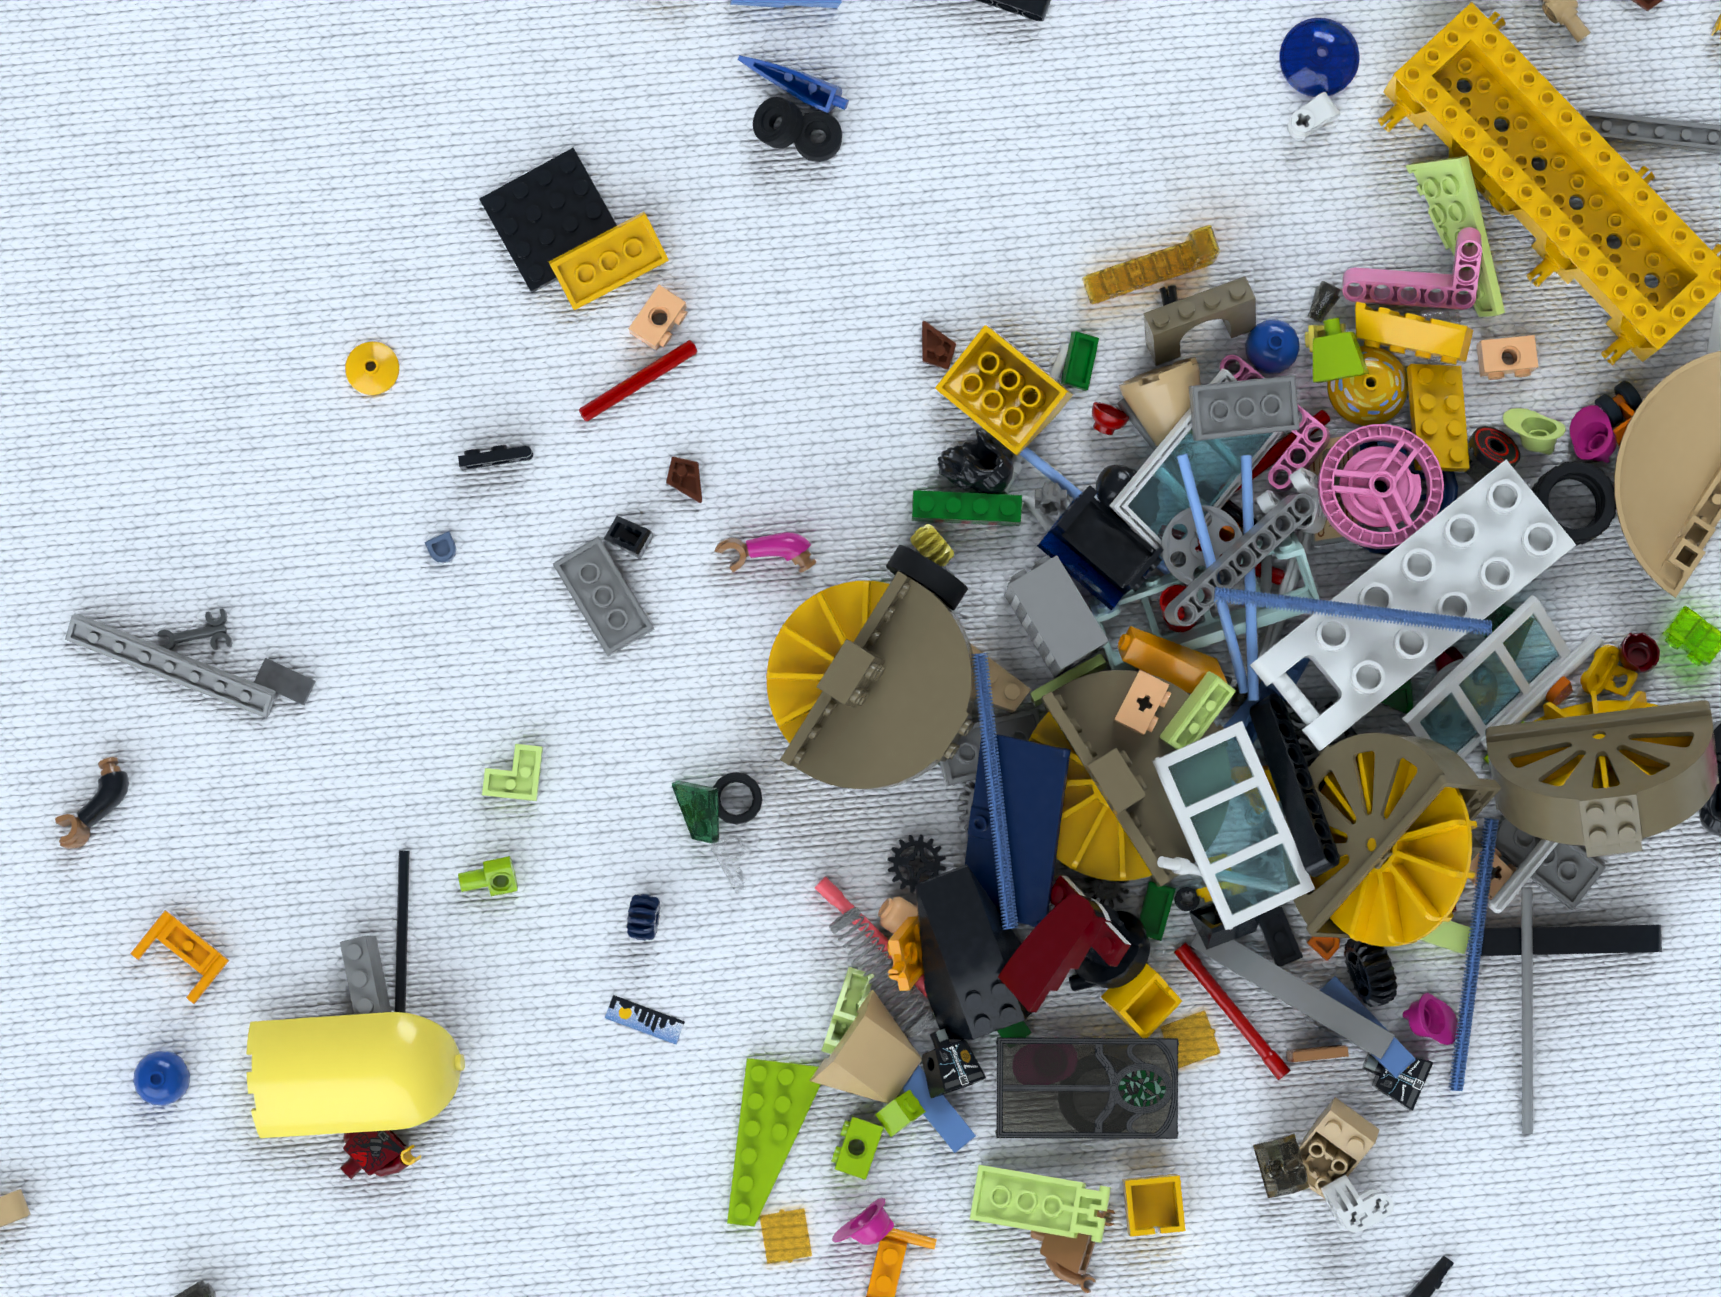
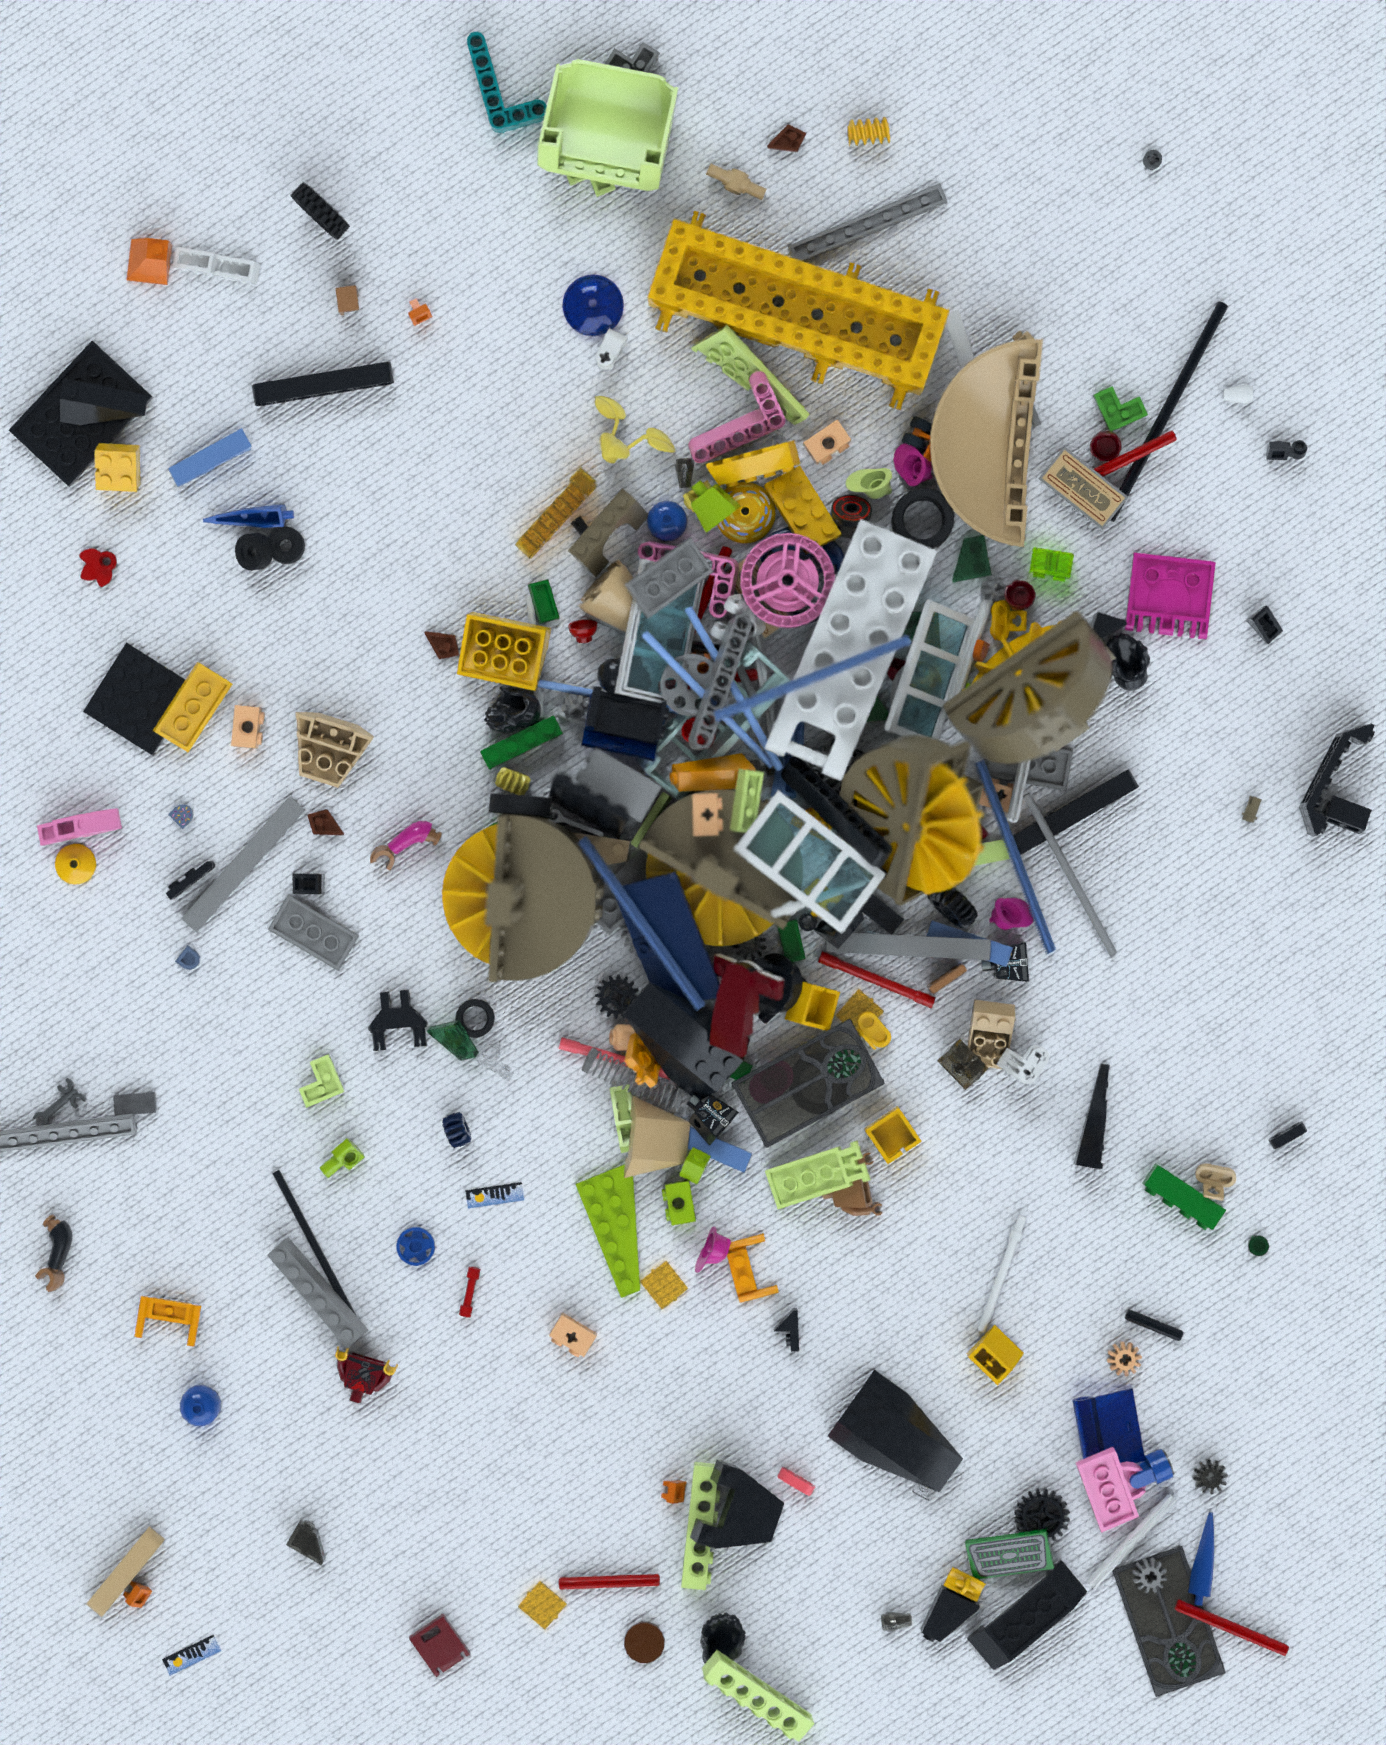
camera: 25 degrees left, 5 degrees up
(349, 1073) = (321, 1336): light yellow panel -> none
(401, 325) = (79, 826): none -> bright pink slope
(519, 1028) = (415, 1246): none -> blue wheel
(526, 379) = (182, 815): none -> sand blue tile
(565, 473) = (243, 864): none -> light grey tile
(567, 1100) = (472, 1275): none -> red bar
(585, 44) = (95, 566): none -> red plate
(638, 380) = (257, 775): red axle -> none
(646, 749) = (397, 1018): none -> black connector
(659, 1243) = (584, 1335): none -> light nougat brick
(739, 392) = (328, 747): none -> tan wedge
(978, 635) = (561, 819): none -> light grey flag
(1009, 618) = (587, 805): none -> black plate
(1196, 1068) = (873, 1030): none -> yellow bracket
(1259, 226) = (614, 448): none -> light yellow plant
(1324, 946) = (916, 904): orange tile -> none
(1604, 583) = (972, 560): none -> clear green wing
(1612, 627) = (993, 588): none -> light grey gear

